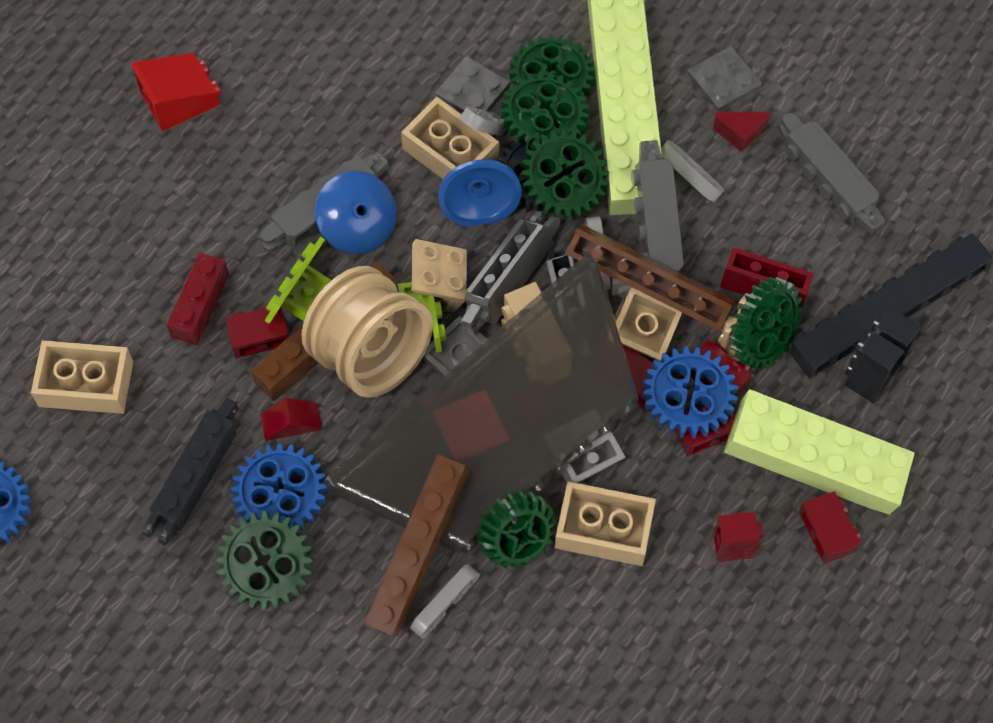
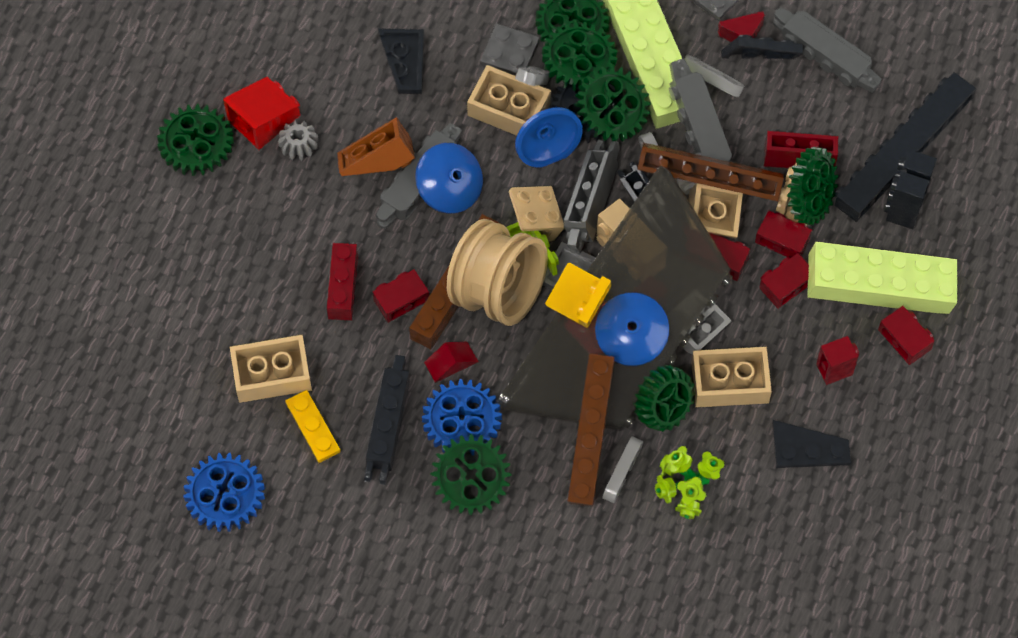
camera: 15 degrees left, 0 degrees up
(77, 92) = (195, 139): none -> dark green gear
(109, 455) = (312, 426): none -> yellow plate
(205, 130) = (298, 140): none -> light grey gear
(287, 163) = (378, 151): none -> dark orange slope
(302, 288) = (427, 251): lime bracket -> none
(354, 69) = (405, 57): none -> black wing
(448, 381) = (578, 294): none -> yellow bracket
(504, 458) = (634, 346): none -> blue dish
(515, 646) = (693, 481): none -> lime plant
(673, 633) = (808, 448): none -> black wing
(715, 397) = (790, 255): blue gear -> none
(747, 150) = (770, 49): none -> black wing

